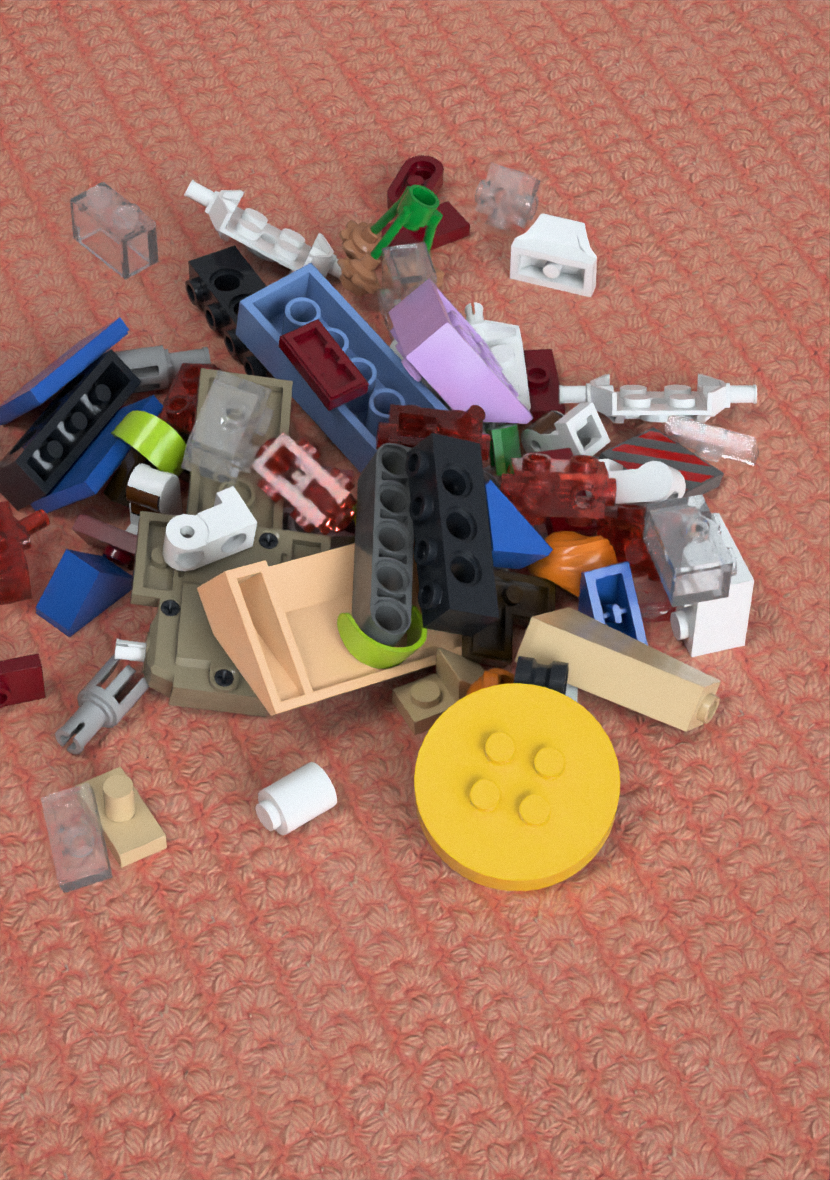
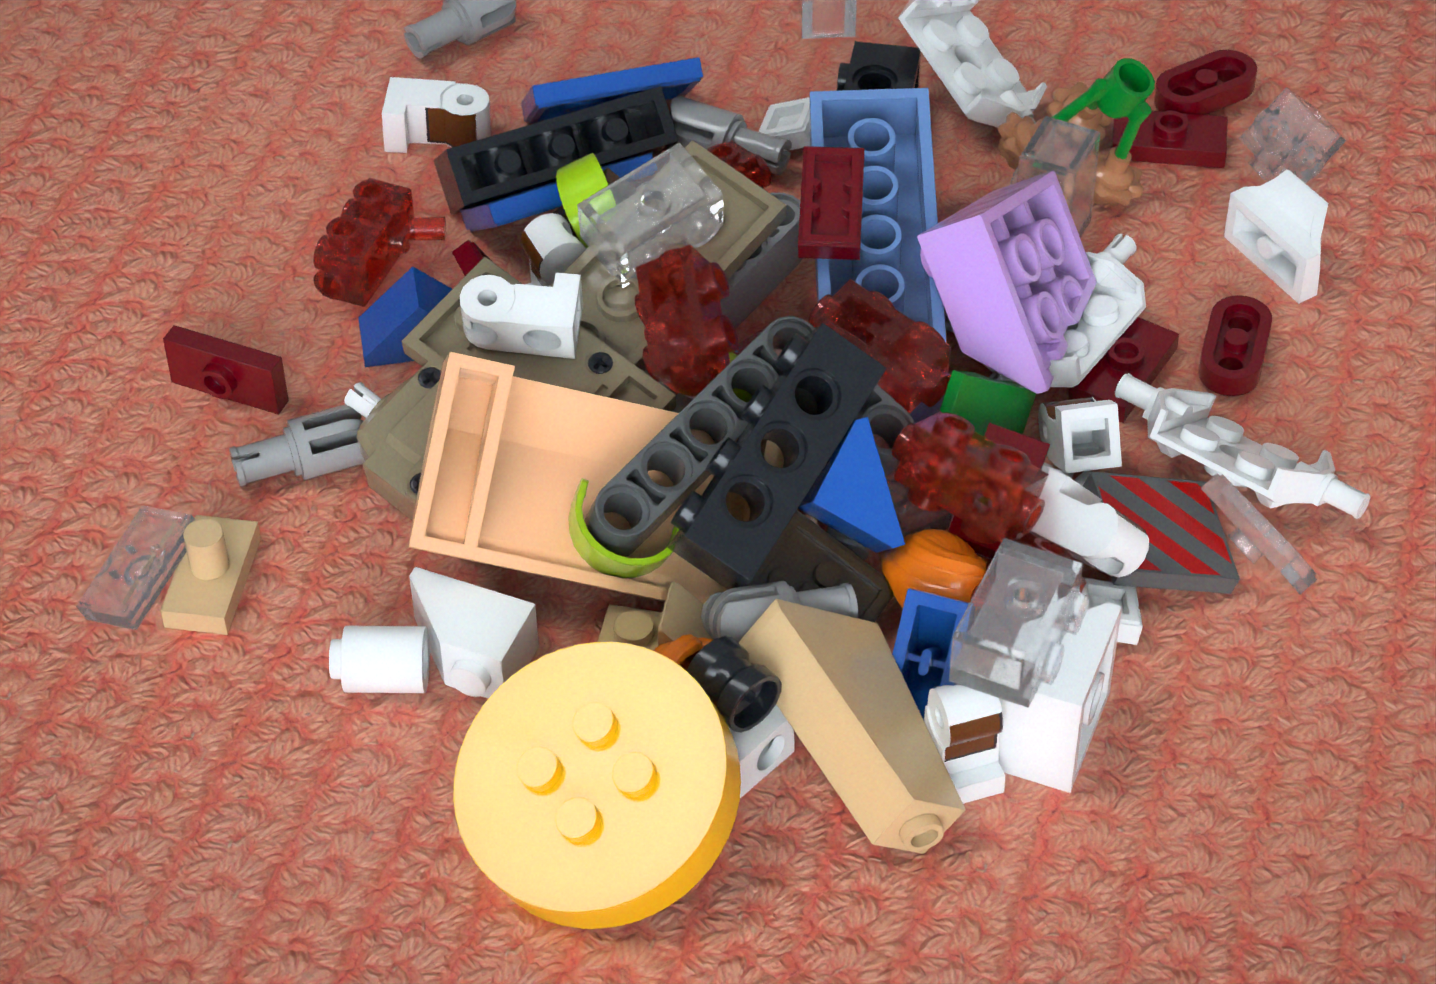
camera: 40 degrees right, 0 degrees up
(188, 334) = (789, 121): none -> white tile
(339, 744) = (473, 631): none -> white slope
(500, 641) = (738, 608): none -> light grey arm
(589, 339) = (1235, 345): none -> dark red plate
(680, 633) = (966, 734): none -> white leg

